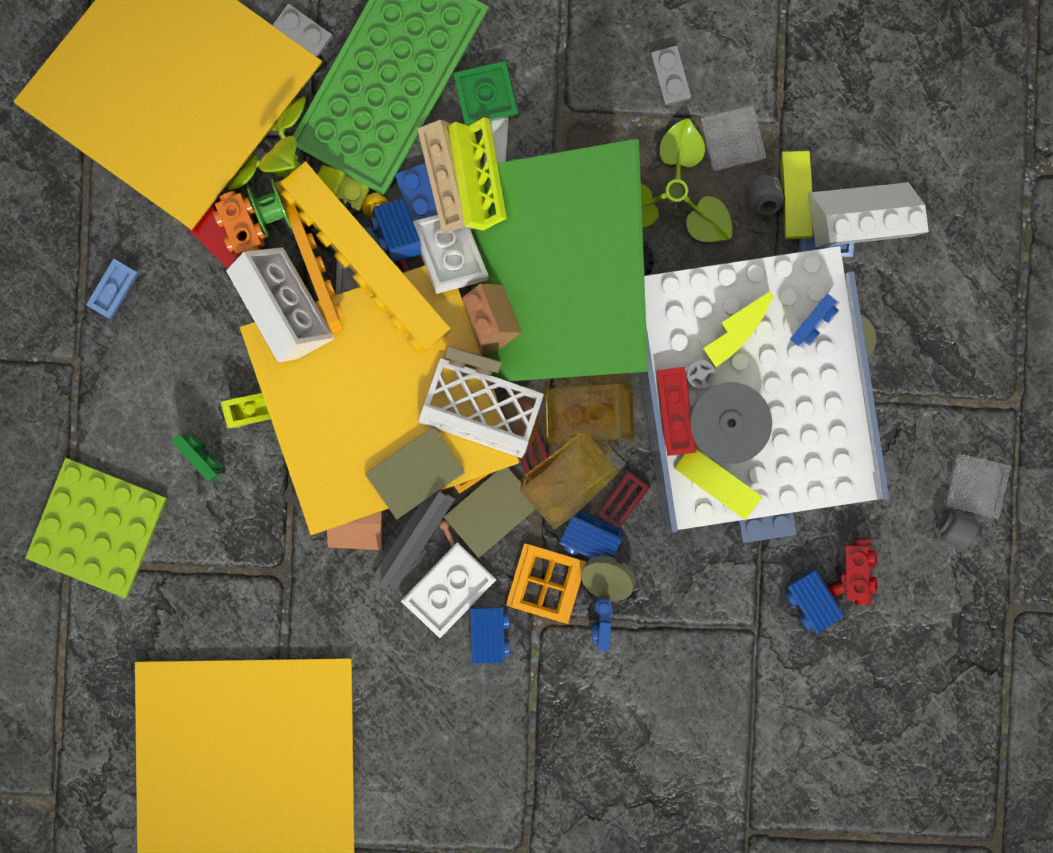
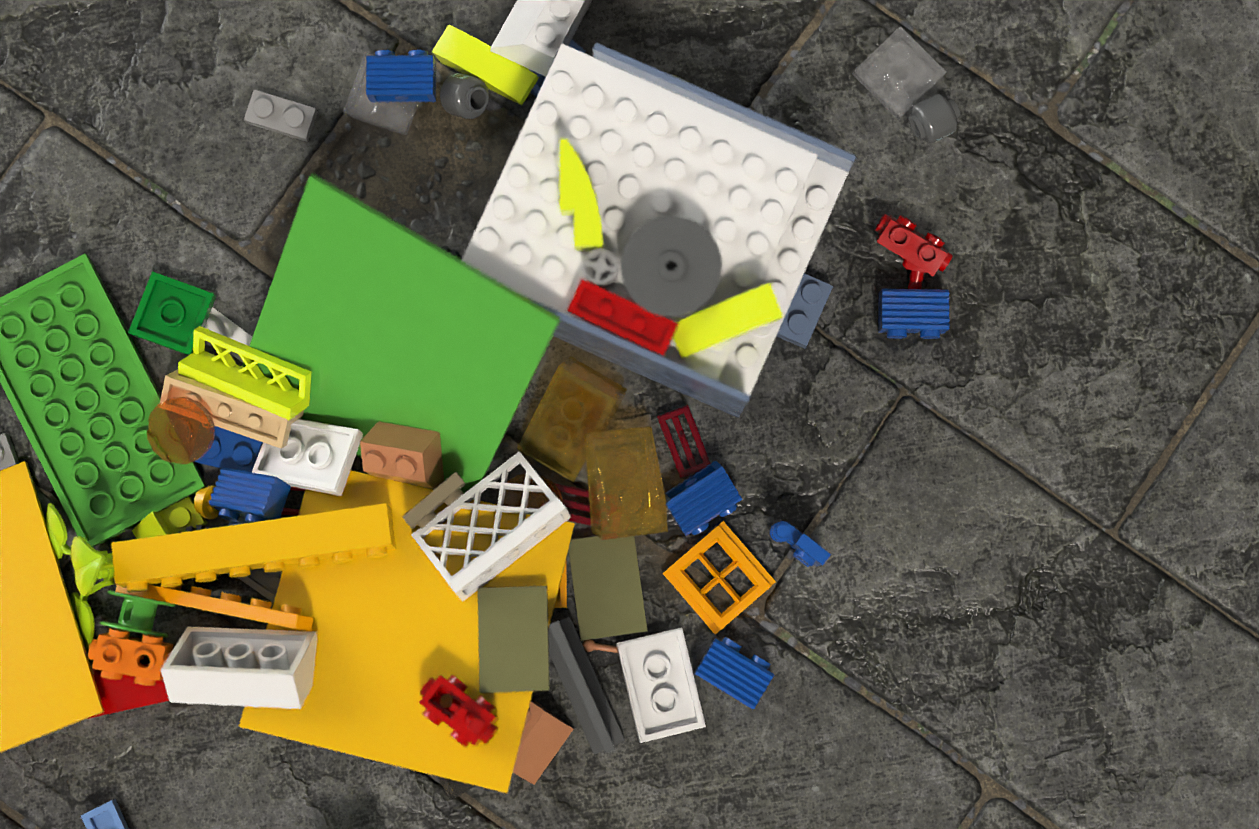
camera: 55 degrees left, 5 degrees down
(245, 410) = (332, 779): neon yellow slope -> none
(343, 475) = (469, 718): none -> red brick
(410, 154) = (180, 430): none -> clear orange tile
(608, 578) = (754, 508): olive tile -> none
(710, 217) = (363, 146): lime plant -> none
(750, 143) = (401, 77): none -> blue brick
(808, 331) = (618, 98): blue plate -> none

